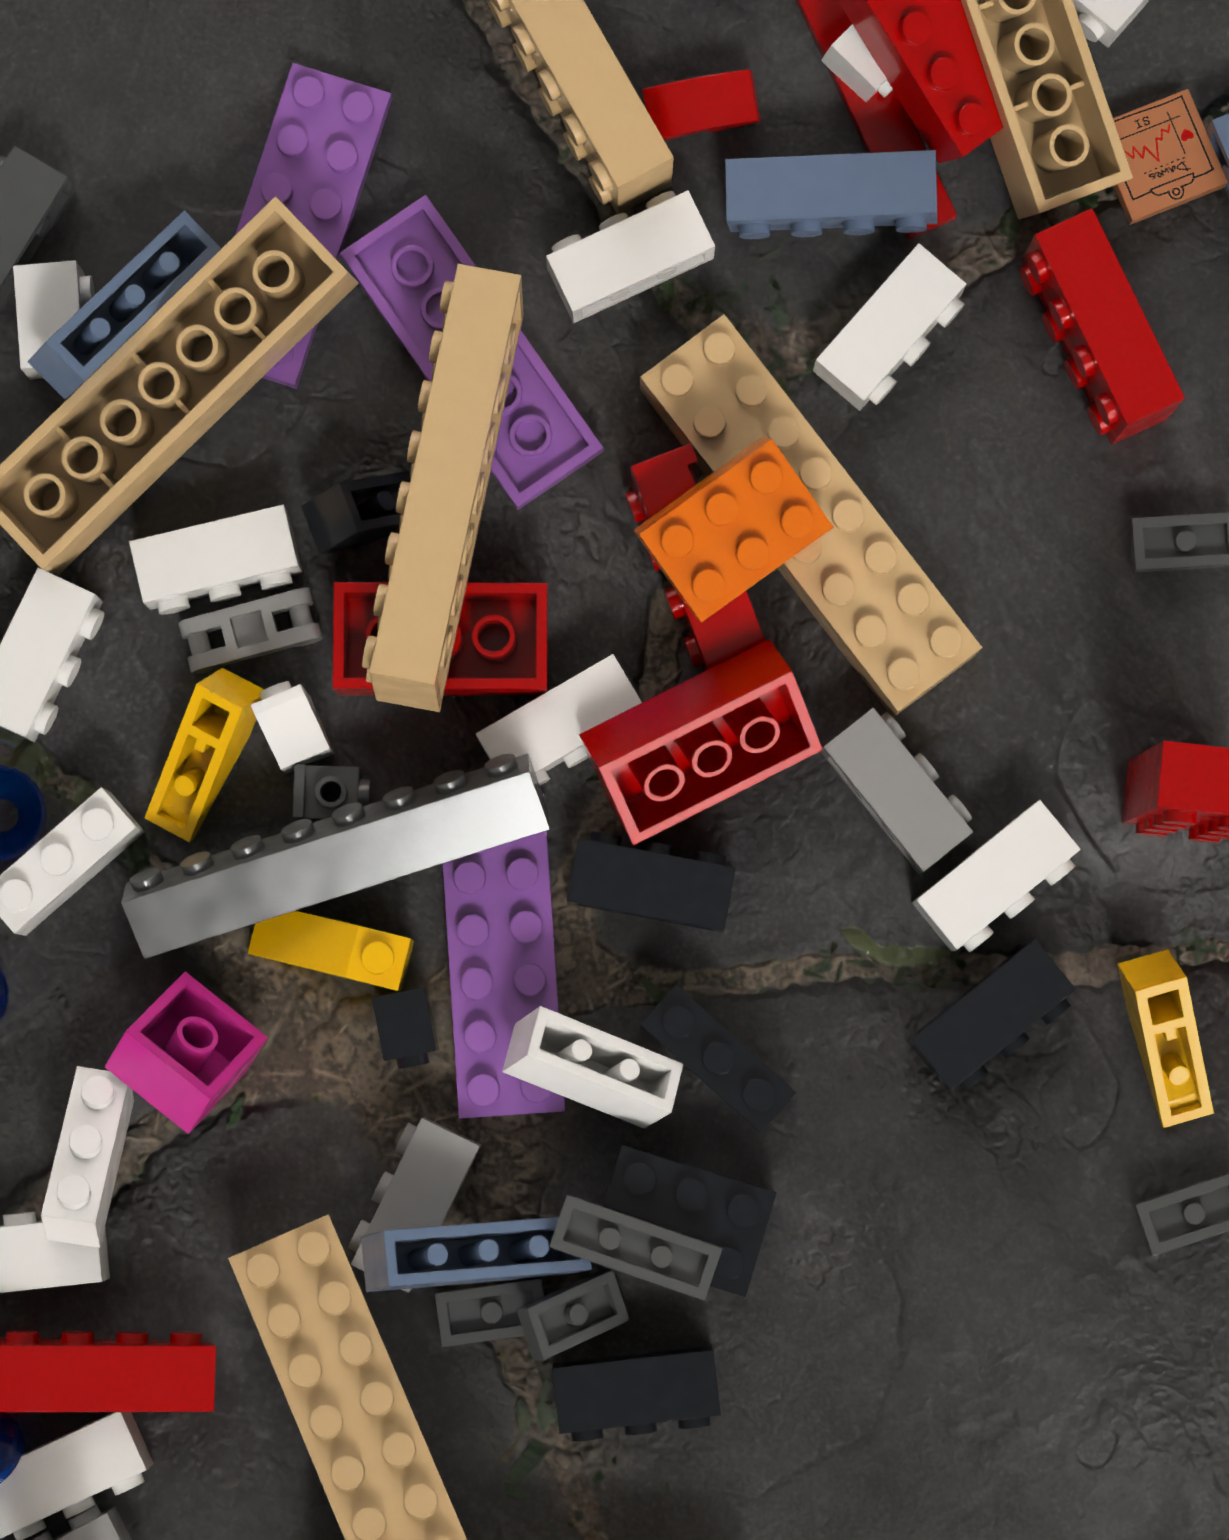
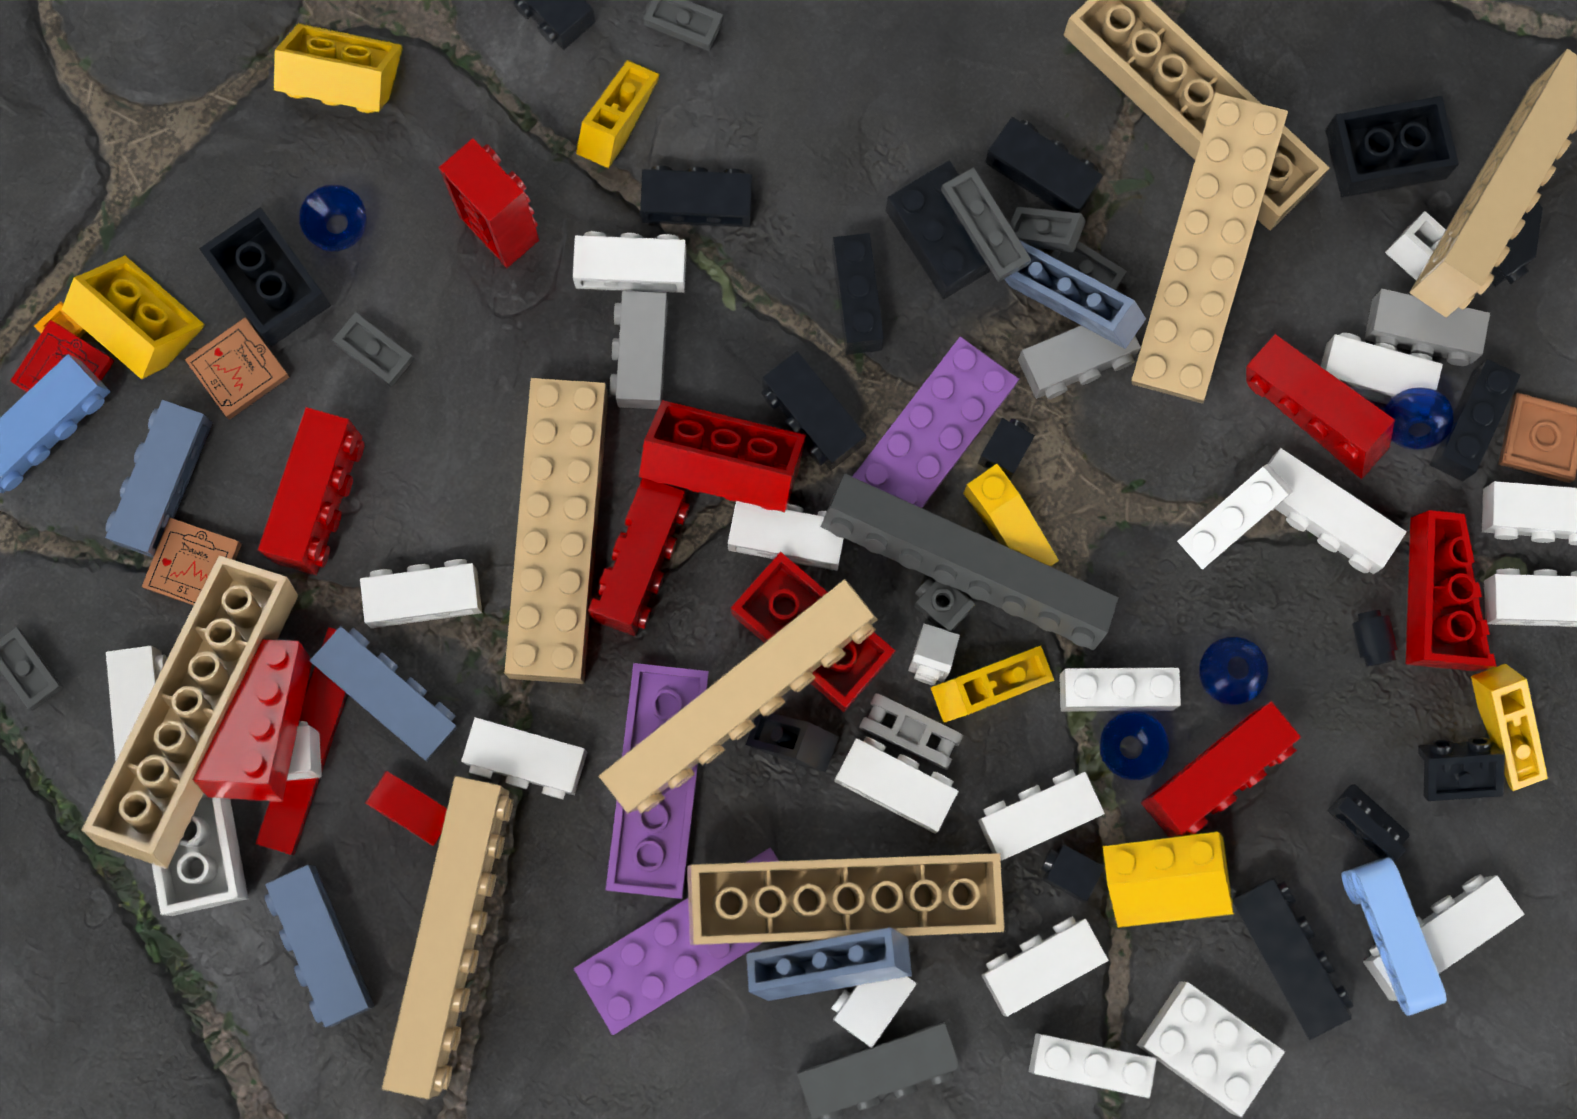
camera: 140 degrees left, 5 degrees down
(186, 1052) = (1137, 526): dark pink brick -> none
(592, 1067) = (928, 338): white brick -> none
(733, 528) = (606, 542): orange brick -> none

